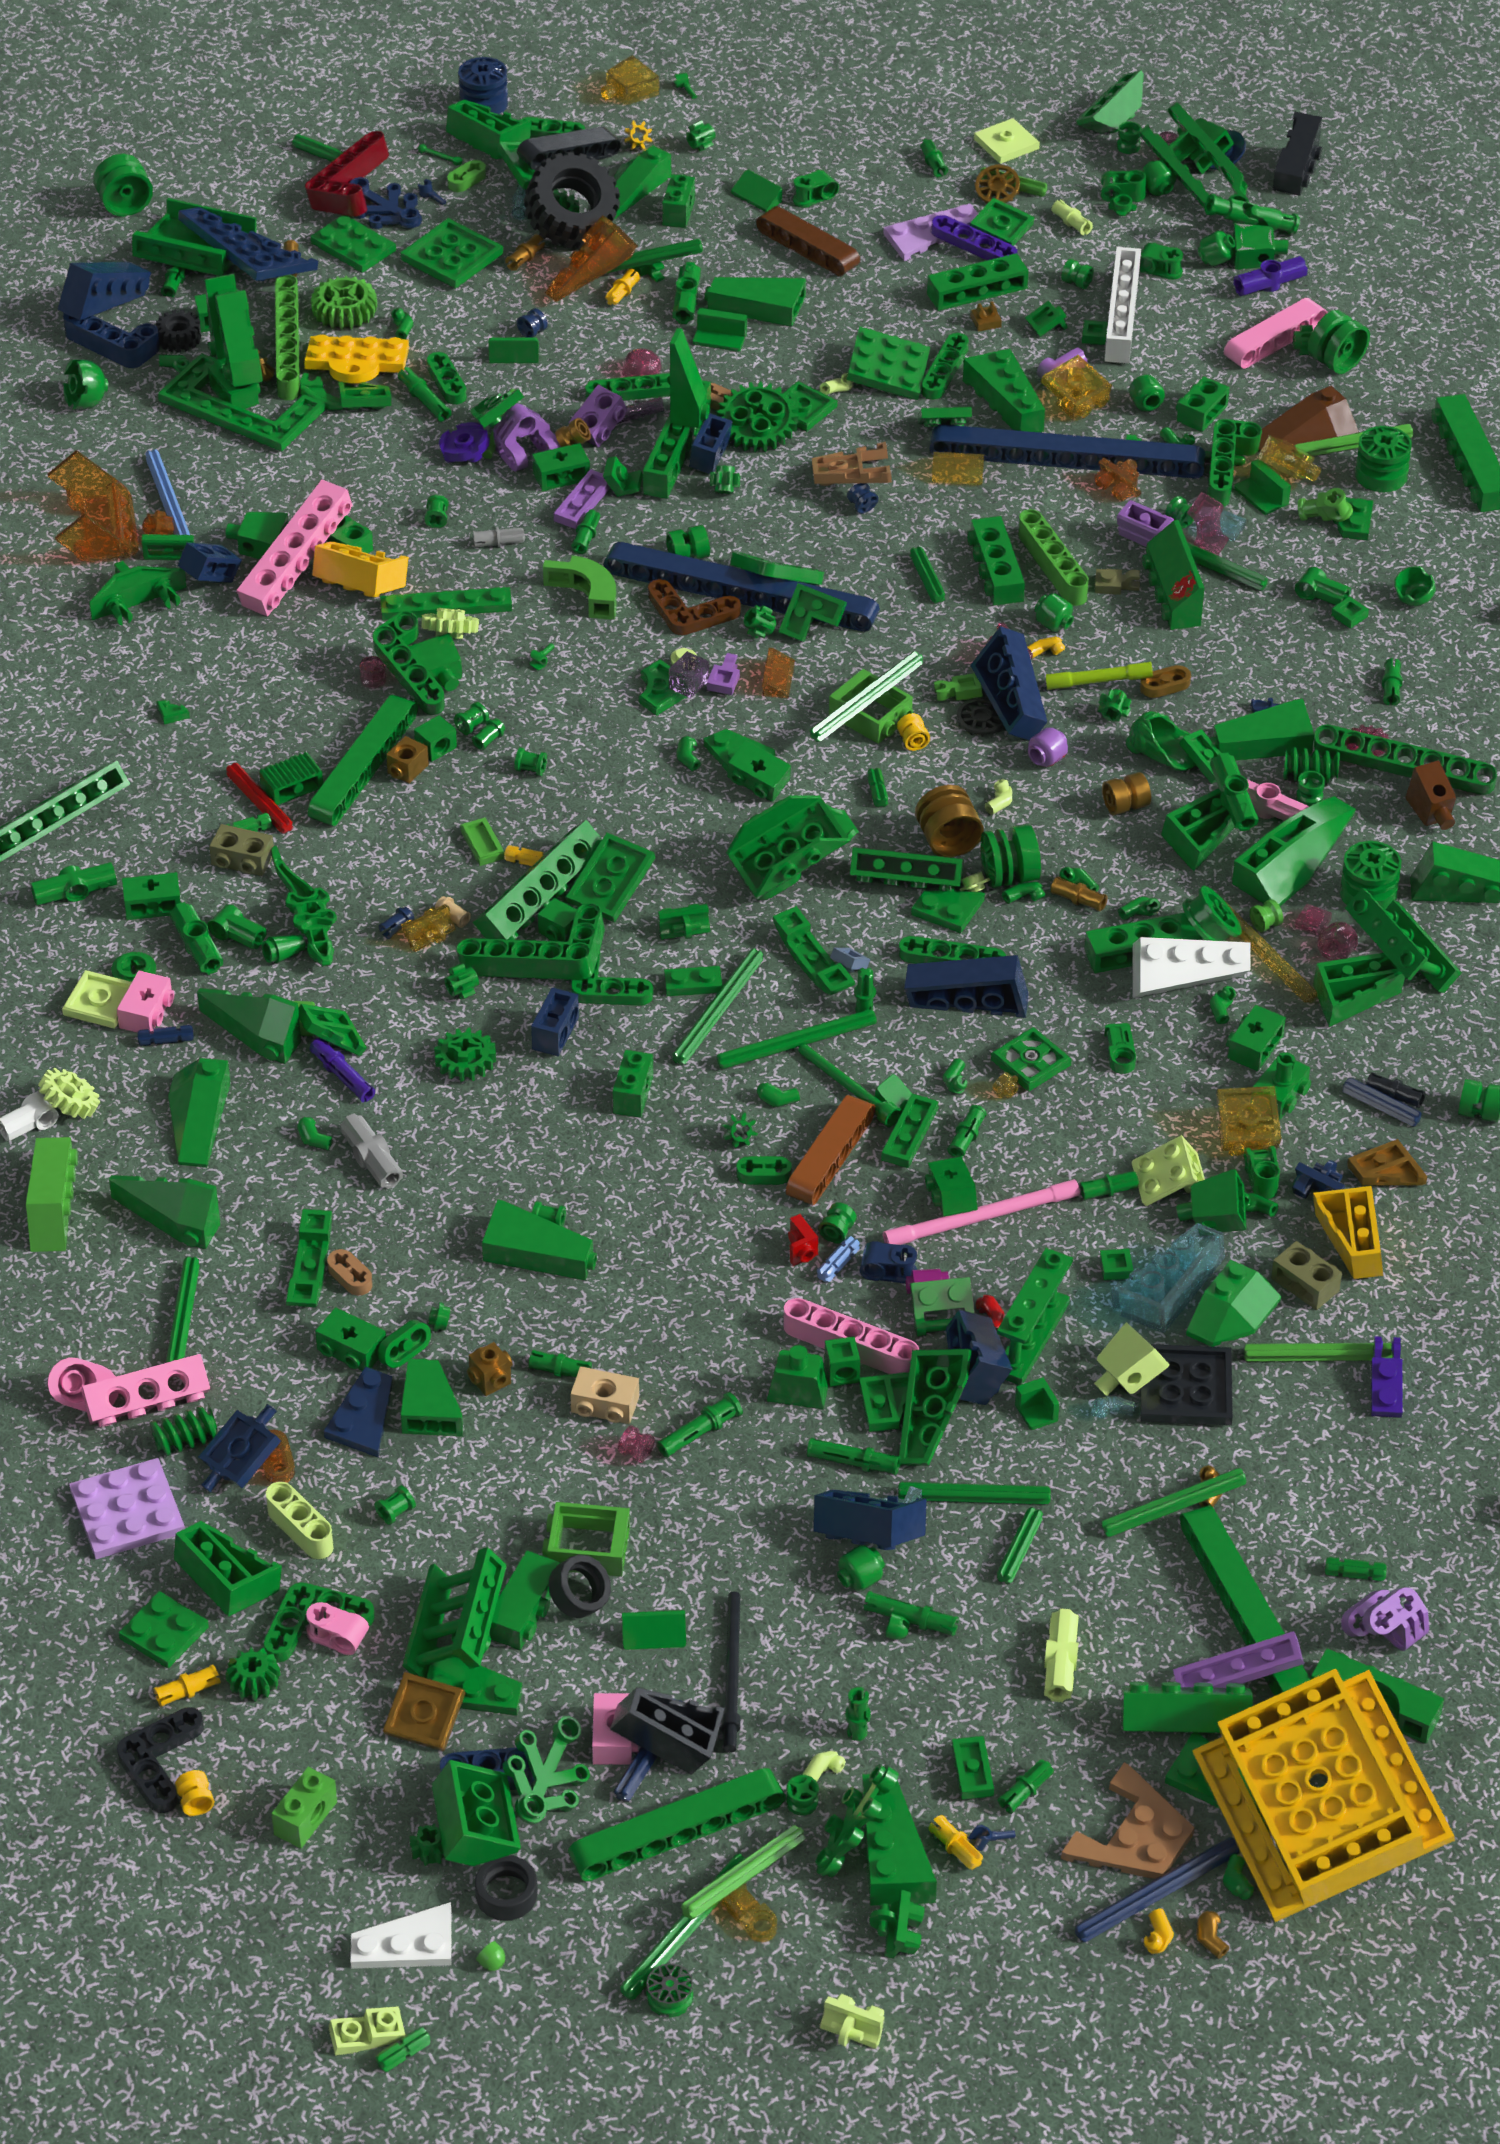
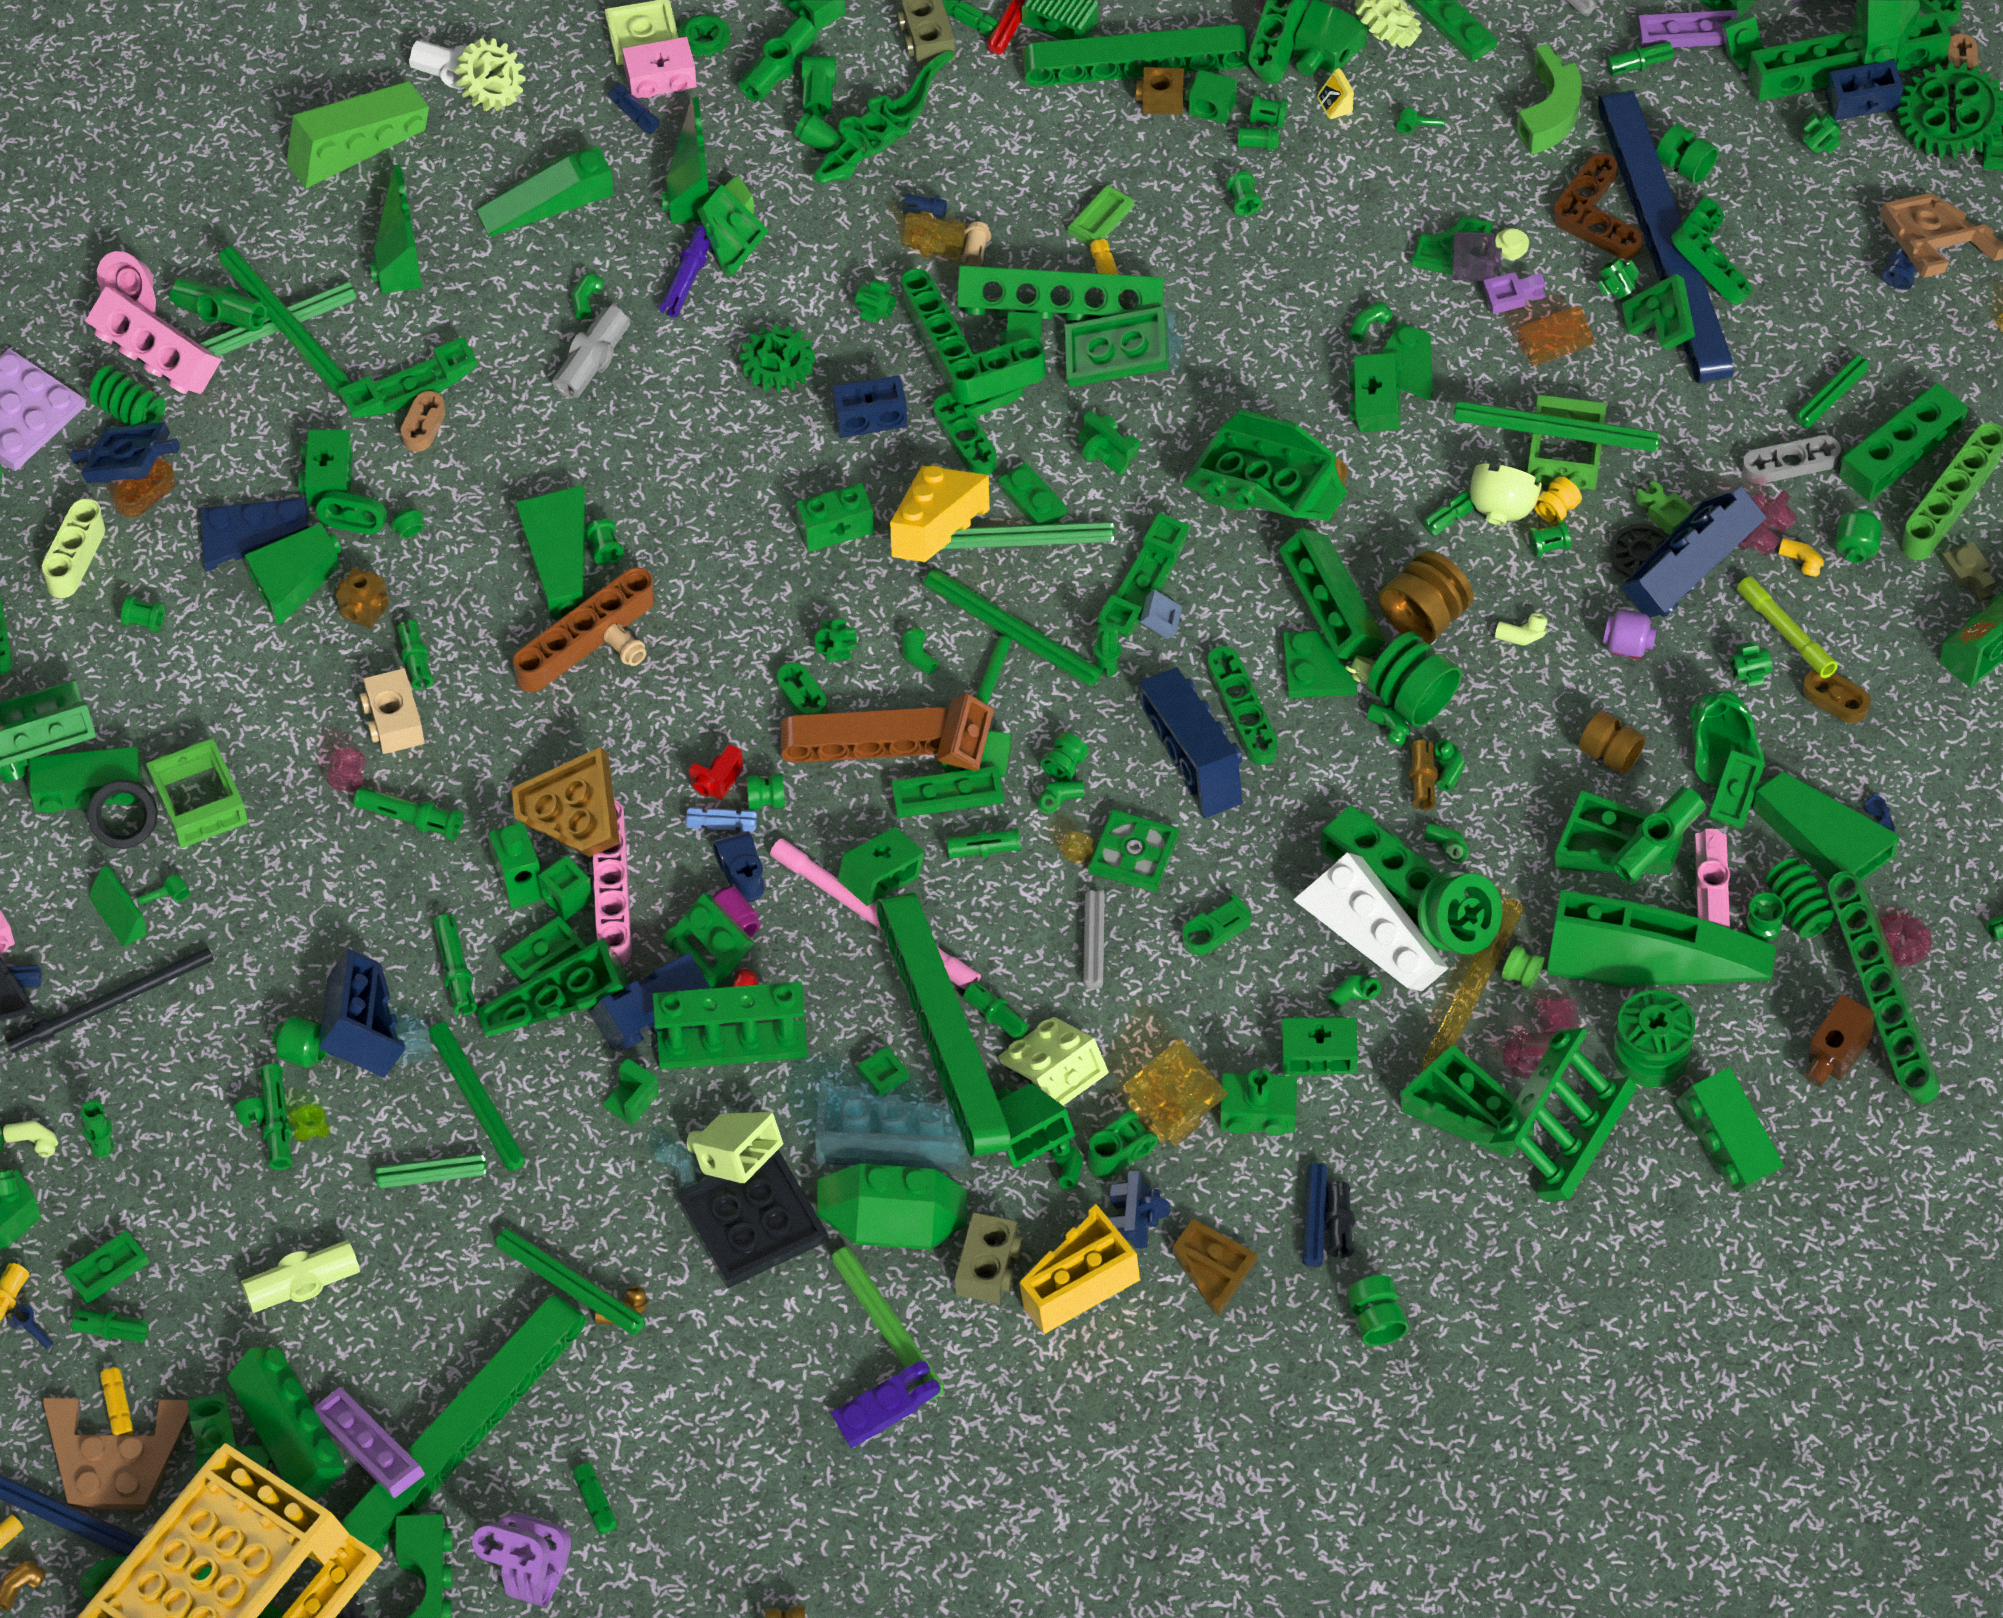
camera: 60 degrees right, 10 degrees up
(128, 1345) = (218, 304): none -> green piece
(196, 1305) = (284, 319): none -> green axle
(487, 680) = (1336, 95): none -> slope
(618, 1260) = (568, 635): none -> dark orange beam
(647, 1245) = (630, 650): none -> tan pin
(661, 1589) = (173, 886): none -> green hand
(677, 1025) = (935, 509): none -> yellow wedge
(776, 1320) = (572, 804): none -> pearl gold plate
(877, 1093) = (965, 732): none -> dark orange slope
(891, 751) = (1503, 493): none -> yellowish green cylinder
(930, 1059) = (1062, 760): none -> green wheel
(930, 1594) = (312, 1114): none -> clear neon green plate
(939, 749) = (1549, 539): none -> green bush
(967, 625) = (1780, 470): none -> light grey beam
(1086, 1112) = (1094, 939): none -> light grey axle
(1093, 1811) = (116, 1402): none -> yellow axle
(1118, 1202) = (943, 1025): none -> green beam
(1158, 1754) = (211, 1422): none -> green brick

